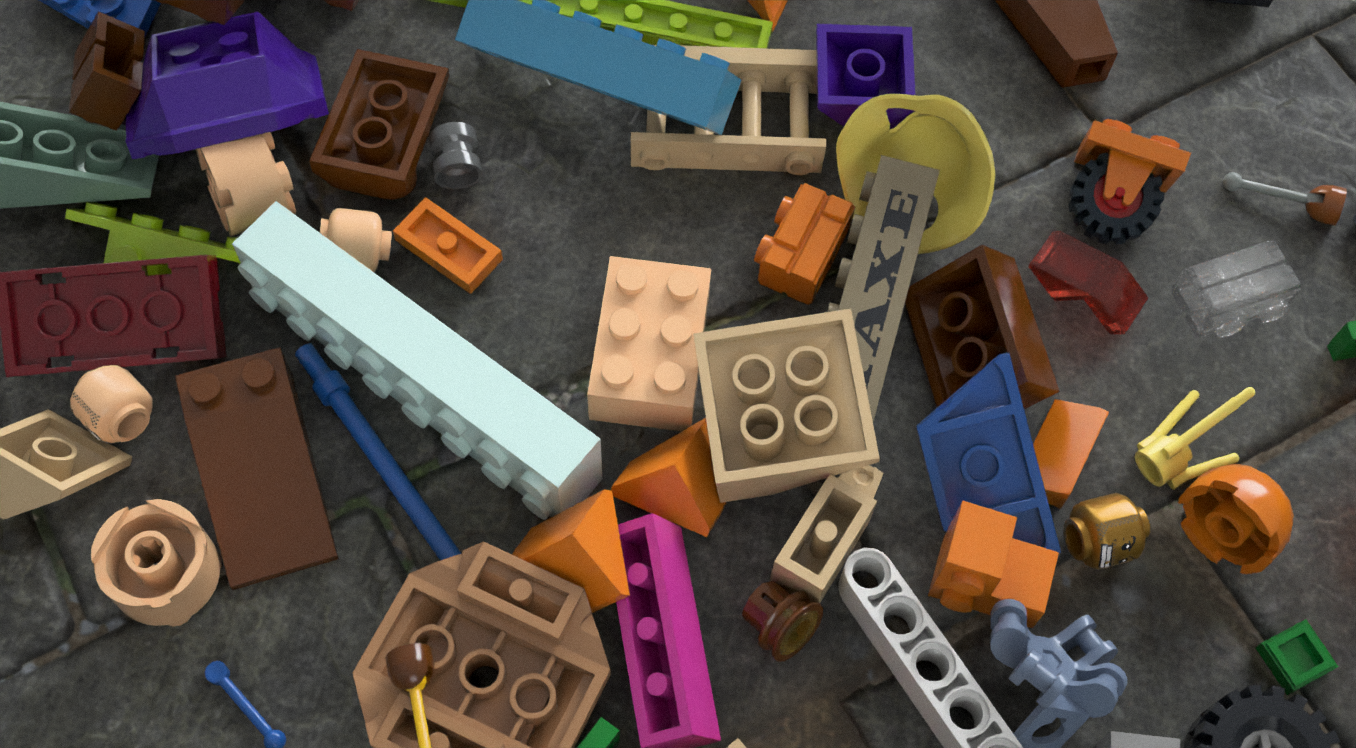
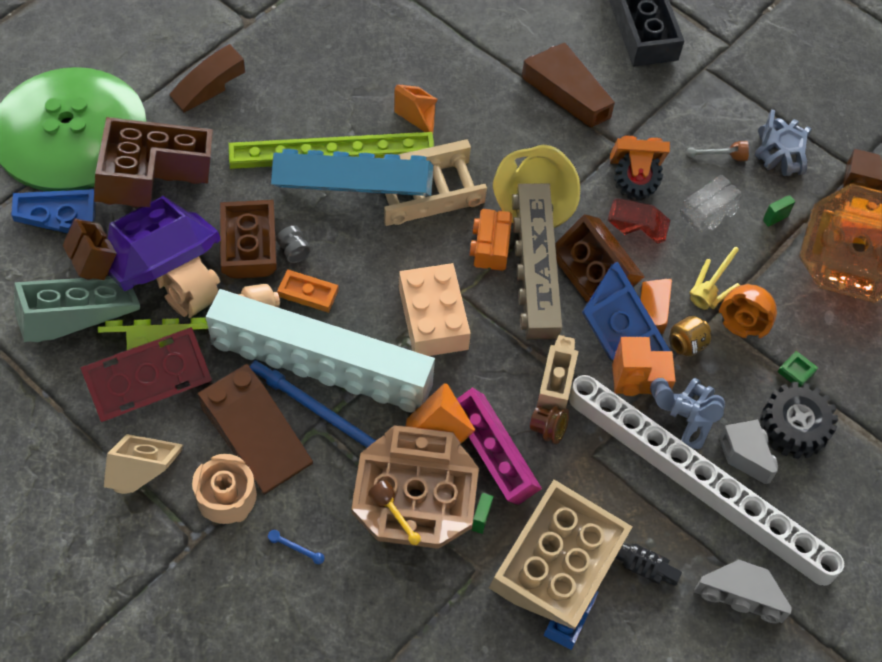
camera: 20 degrees left, 5 degrees down
(111, 404) = (164, 419): light nougat head -> none
(675, 481) = (474, 371): orange slope -> none
(784, 403) = (515, 318): tan slope -> none
(860, 65) = (490, 143): dark purple slope -> none

